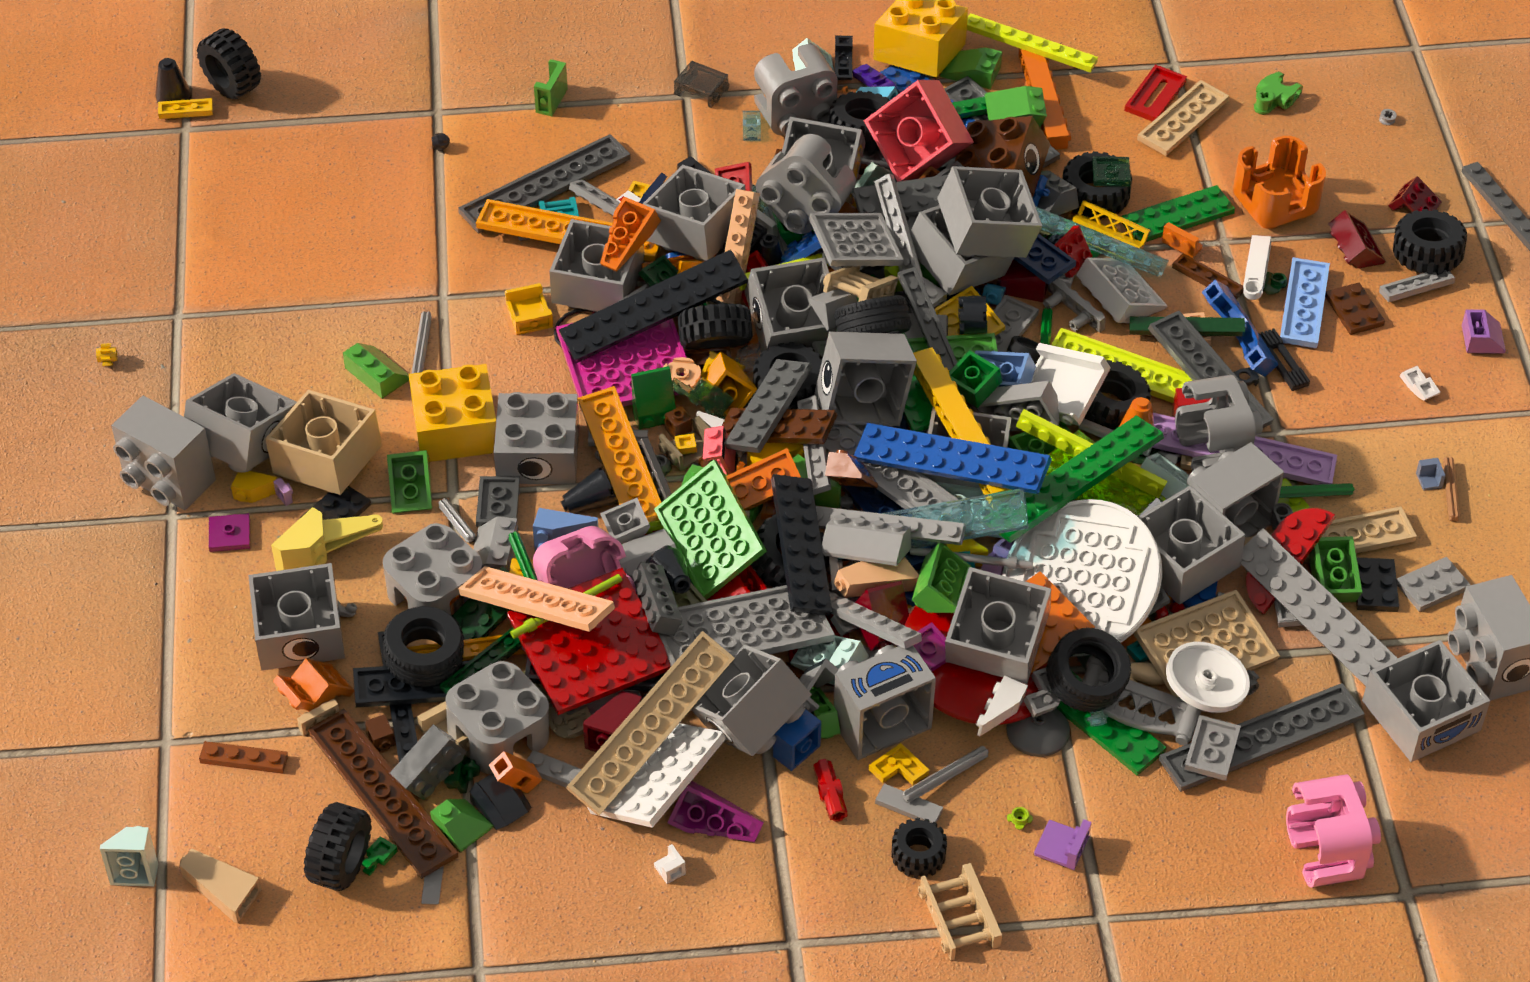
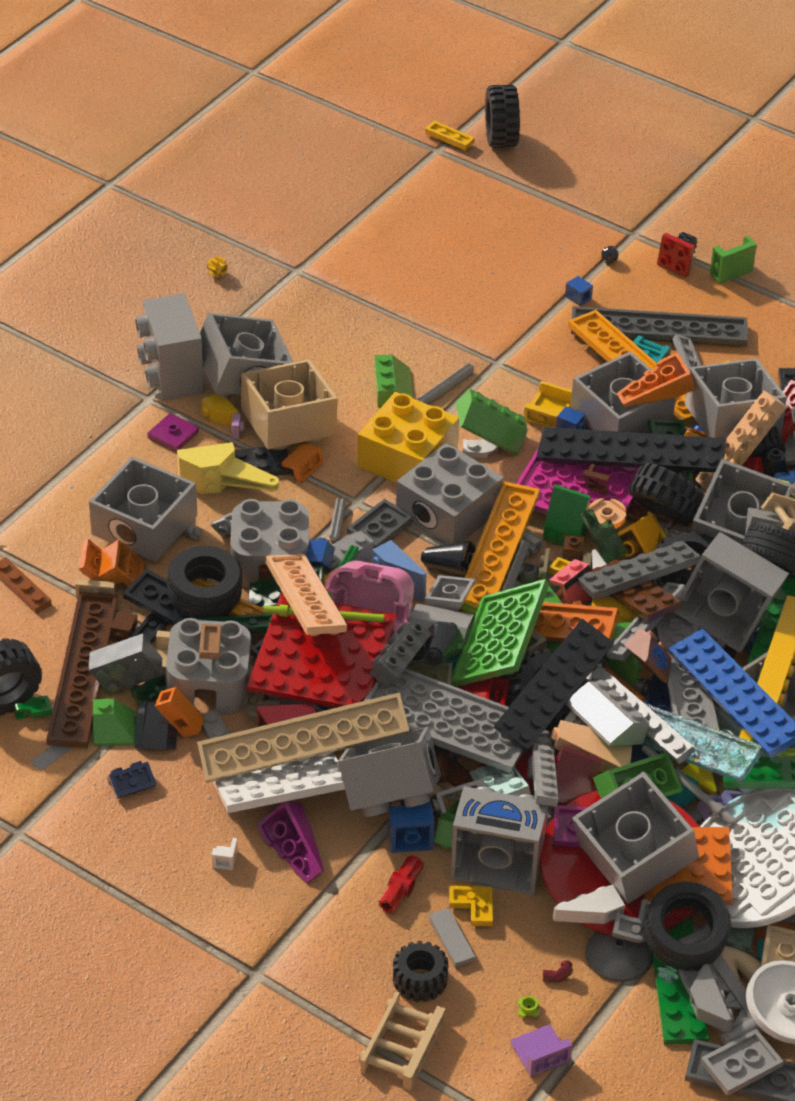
camera: 40 degrees right, 5 degrees down
(171, 82) = (454, 110): black cone -> none
(370, 583) = (223, 525): none -> light grey bracket
(375, 485) = (304, 461): none -> orange panel
(410, 481) = (331, 471): bright green slope -> none
(447, 190) = (578, 291): none -> blue brick
(491, 555) = (320, 552): none -> blue brick
(498, 692) = (210, 641): none -> medium nougat tile
(500, 108) = (677, 252): none -> red plate
(508, 351) = (491, 421): none -> bright green slope
(510, 377) = (478, 448): none -> white plate
(528, 858) = (131, 780): none -> dark blue bracket
(564, 311) = (570, 419): none -> blue brick
(645, 351) = (596, 481): none -> reddish brown bracket
(945, 774) = (503, 933): light grey axle -> none
(1015, 778) = (560, 974): none -> dark red arm
(1151, 717) = (709, 1001): none -> light grey slope

